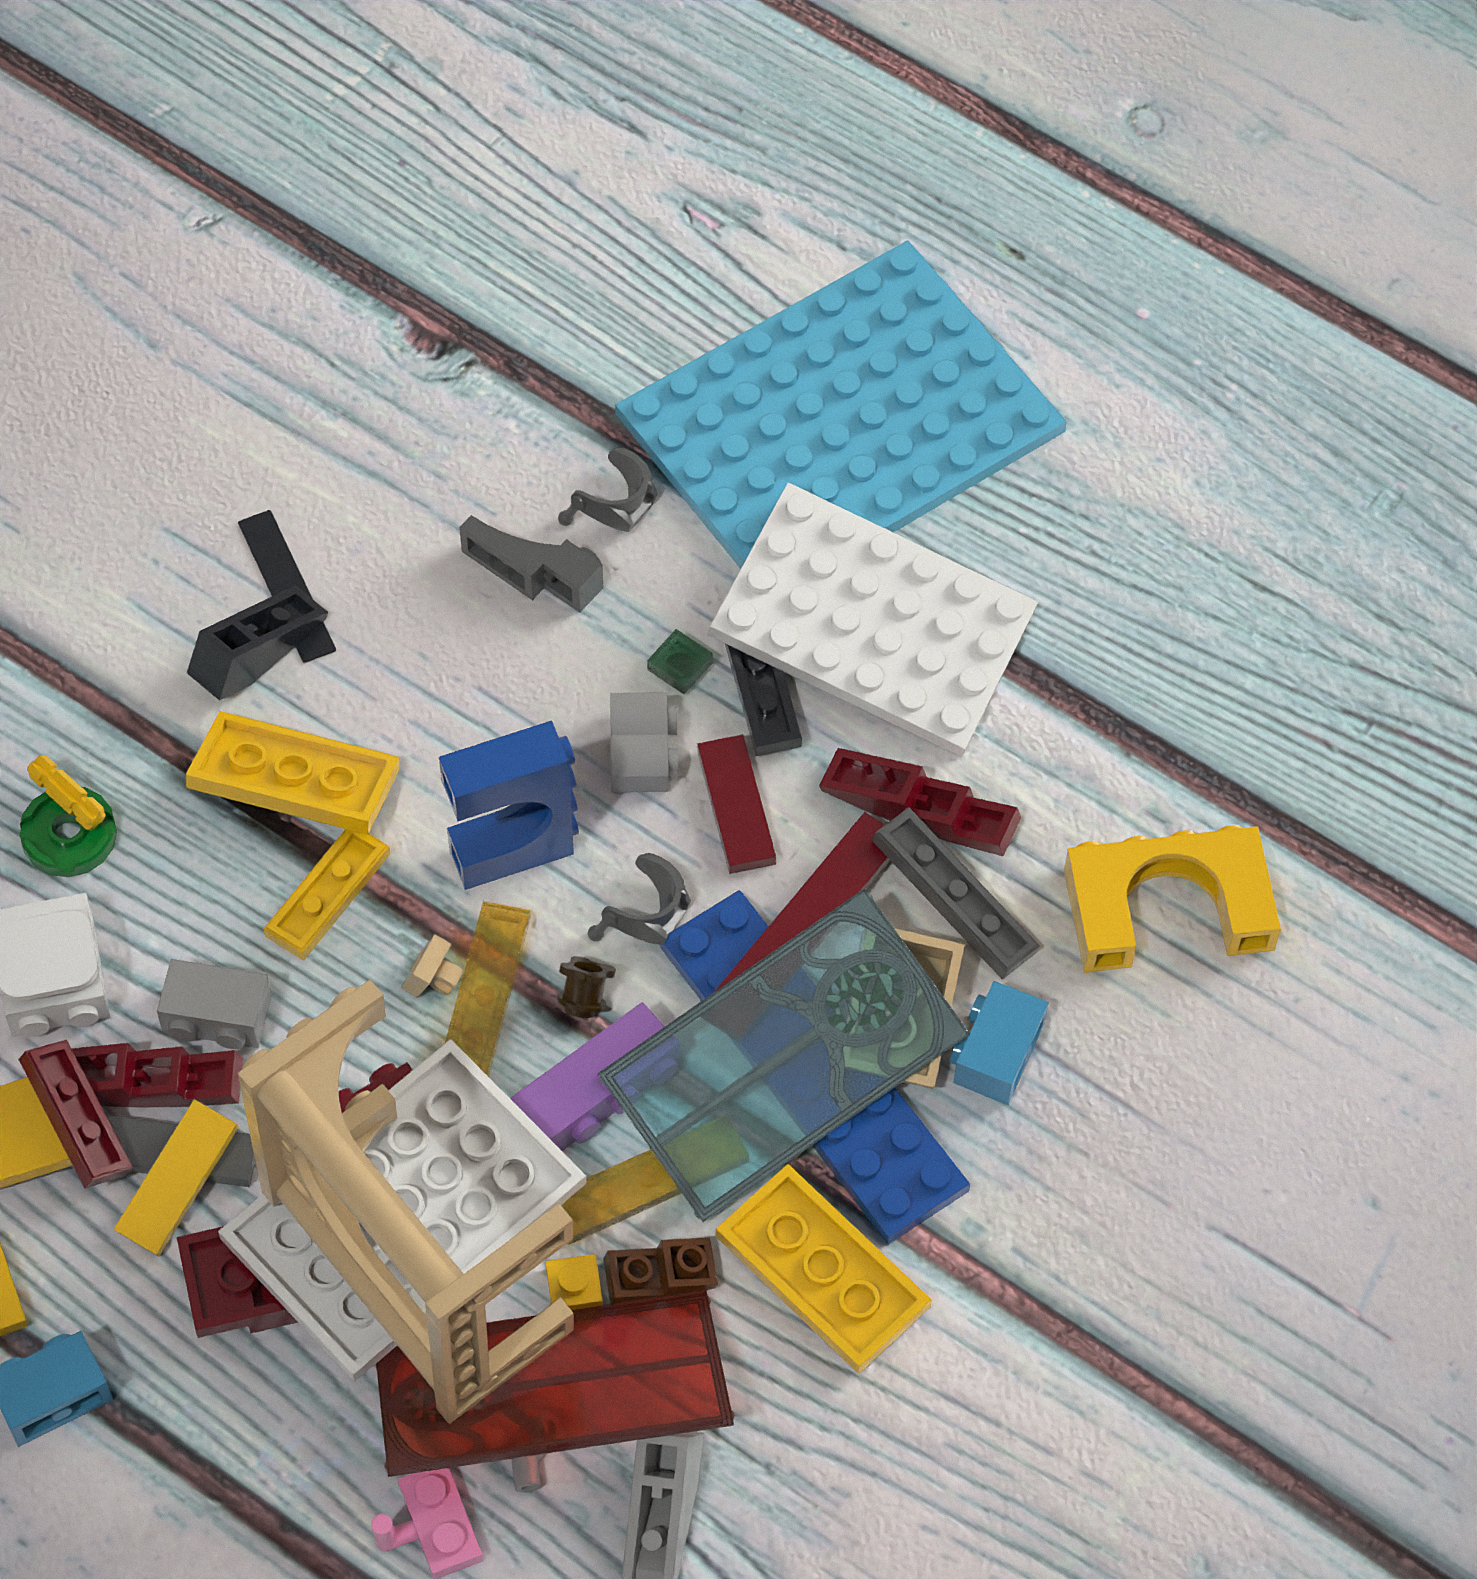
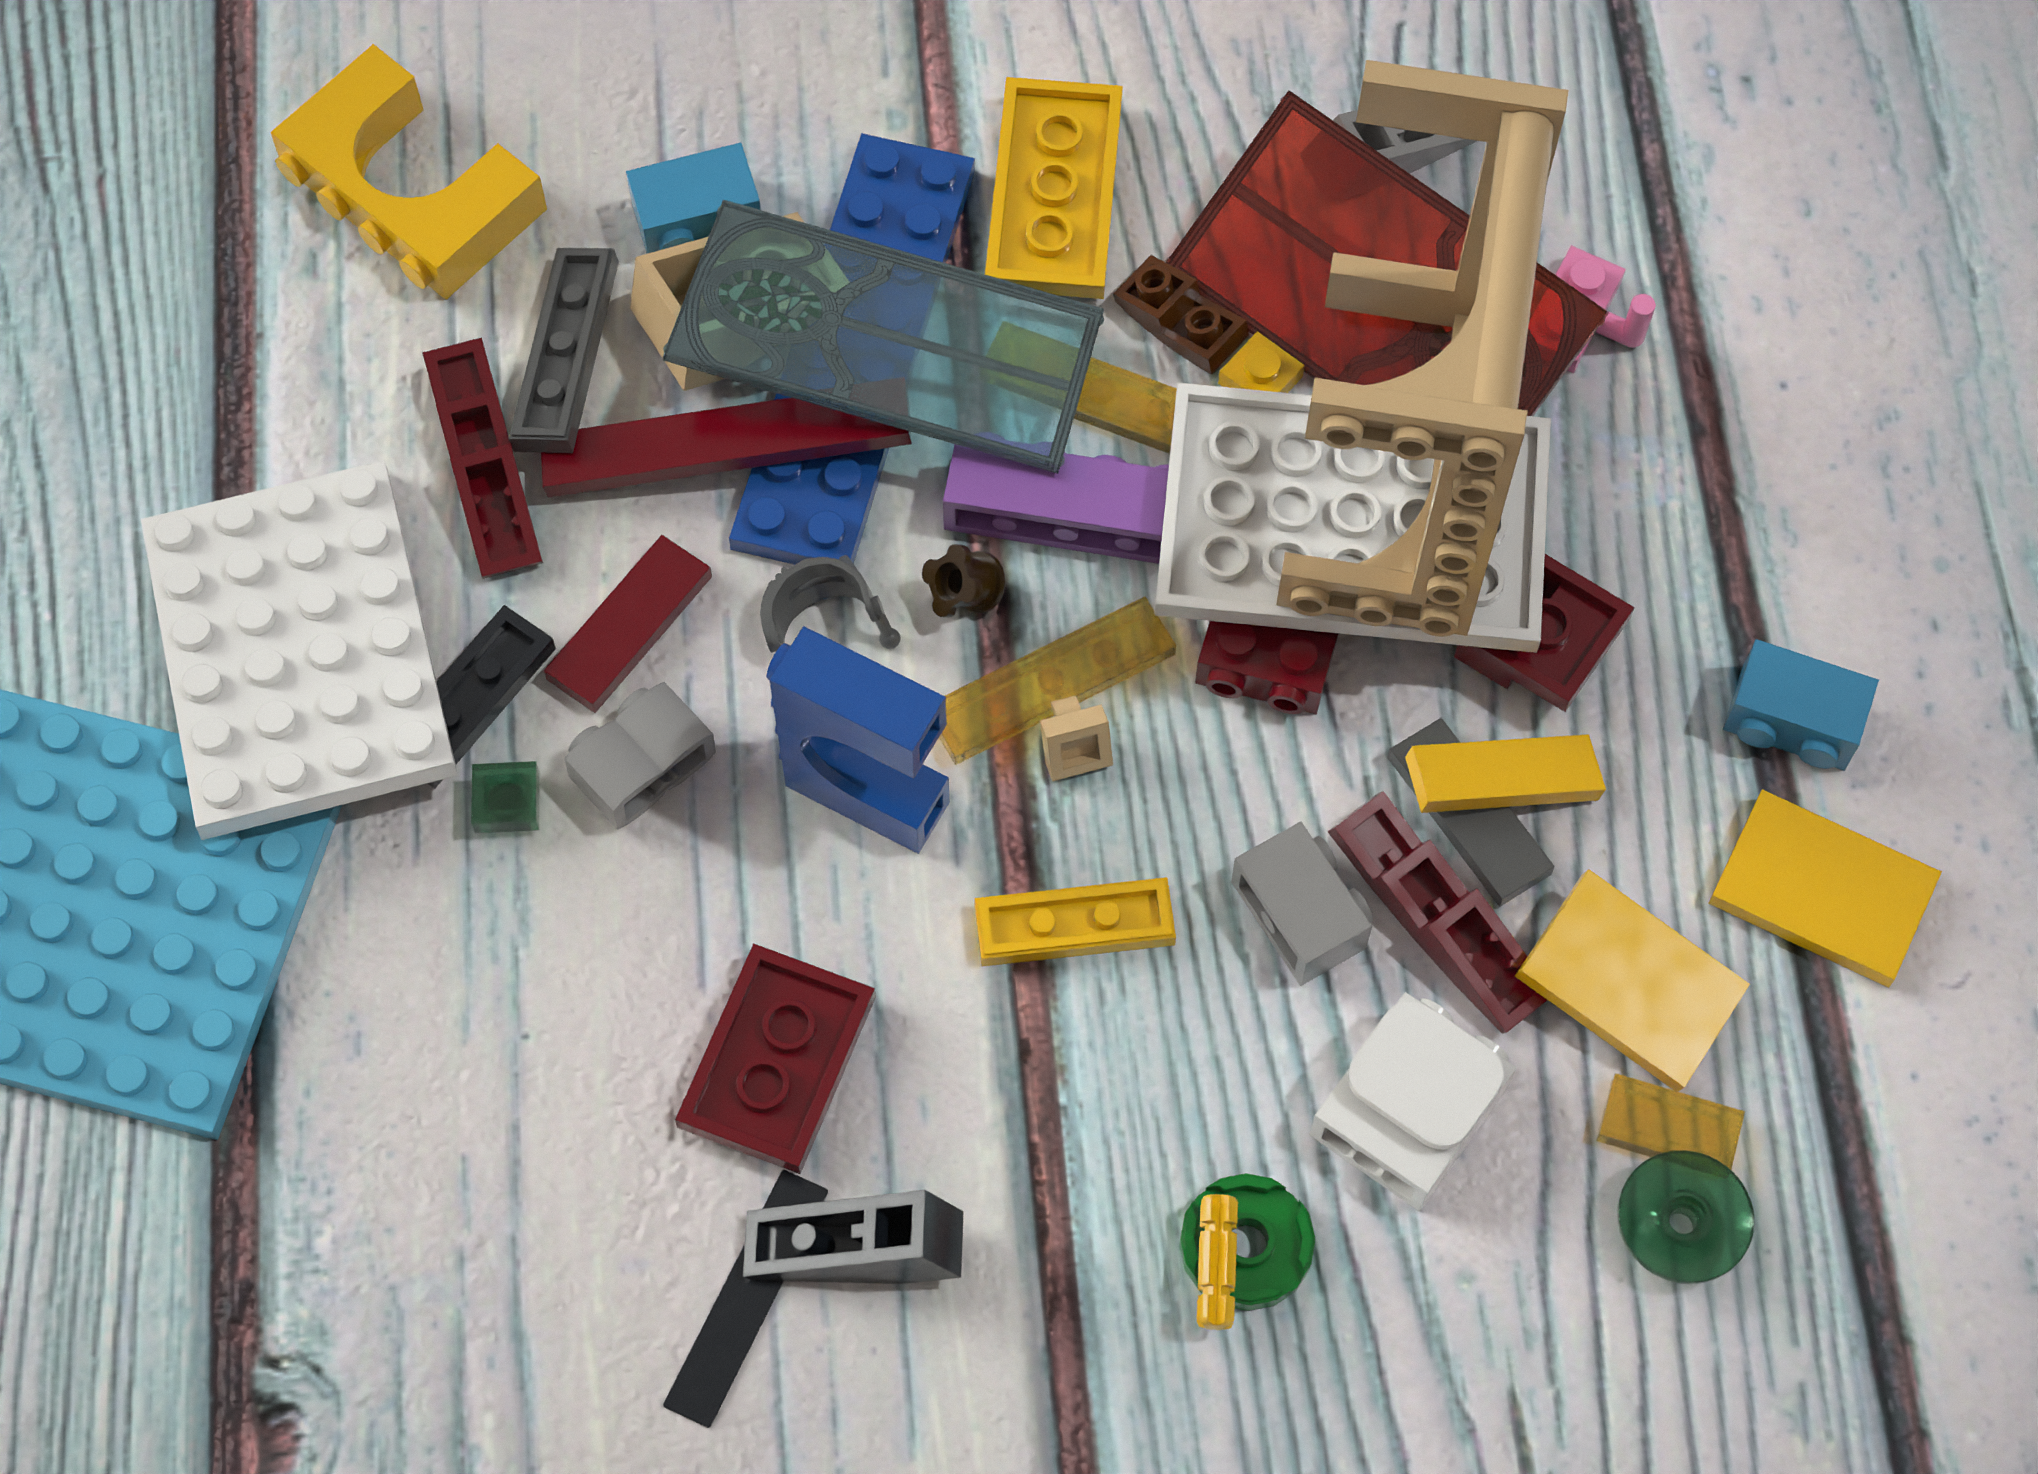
camera: 130 degrees left, 5 degrees up
(75, 1113) = (1545, 905): dark red tile -> none
(293, 772) = (982, 1056): yellow plate -> none
(395, 681) = (776, 1058): none -> dark red plate
(531, 566) = (487, 996): dark grey slope -> none
(617, 513) = (325, 1007): dark grey helmet -> none

